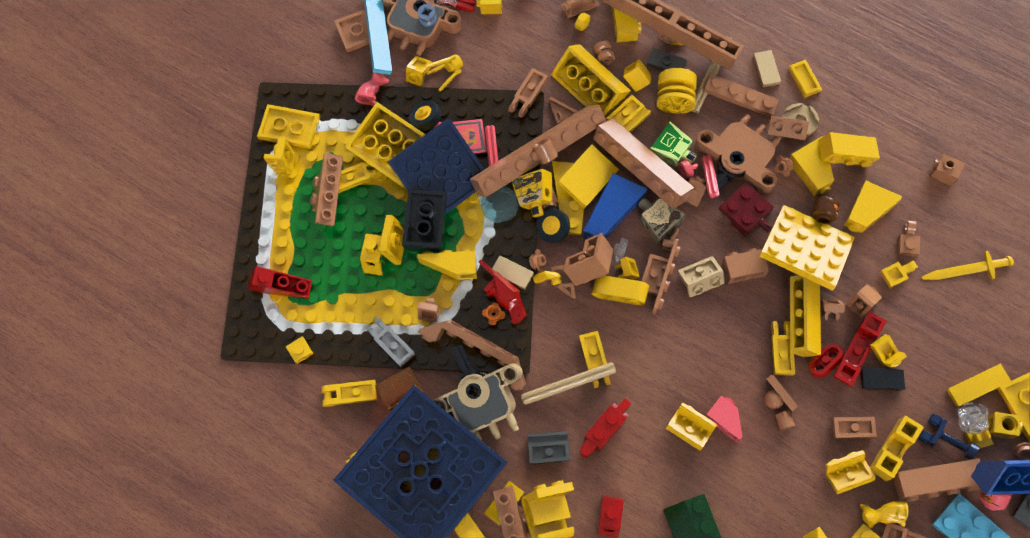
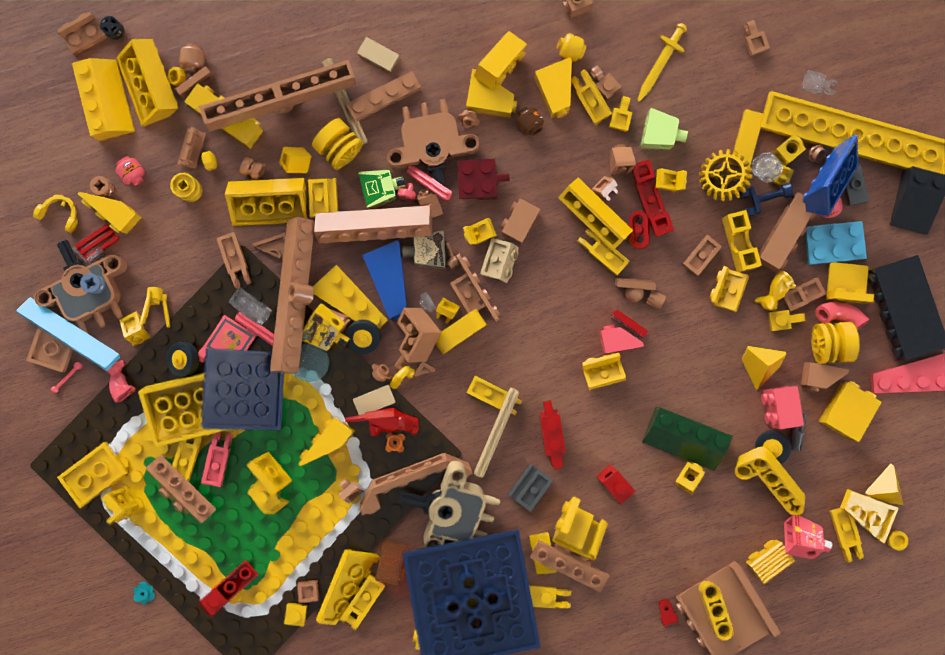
camera: 55 degrees left, 15 degrees up
(228, 236) = (148, 592): none -> teal plant
(325, 344) = (308, 591): none -> nougat tile
(358, 57) = (77, 366): none -> coral hinge
(360, 365) = (345, 583): none -> yellow wing
(371, 198) = (217, 460): none -> coral hinge
(391, 343) = (351, 540): light grey hinge -> none
(425, 221) = (275, 435): black slope -> none
(504, 130) = (250, 306): none -> clear slope
(549, 21) = (186, 187): none -> yellow wheel
(587, 176) = (346, 275): yellow tile -> none
(663, 60) = (303, 126): dark grey plate -> none
(708, 243) = (479, 232): none -> yellow bracket
(746, 415) = (629, 323): none -> red tile
(788, 127) = (443, 88): nougat hinge -> none
(805, 79) = (412, 34): yellow tile -> none
(805, 113) = (442, 71): tan tile -> none
(807, 247) = (548, 164): yellow plate -> none
(882, 379) = (685, 202): black slope -> none
(888, 239) = (591, 98): none -> yellow hinge
(911, 193) = (572, 47): none -> yellow head
(916, 312) = (661, 131): none -> yellowish green torso
(933, 396) = (718, 175): none -> yellow gear

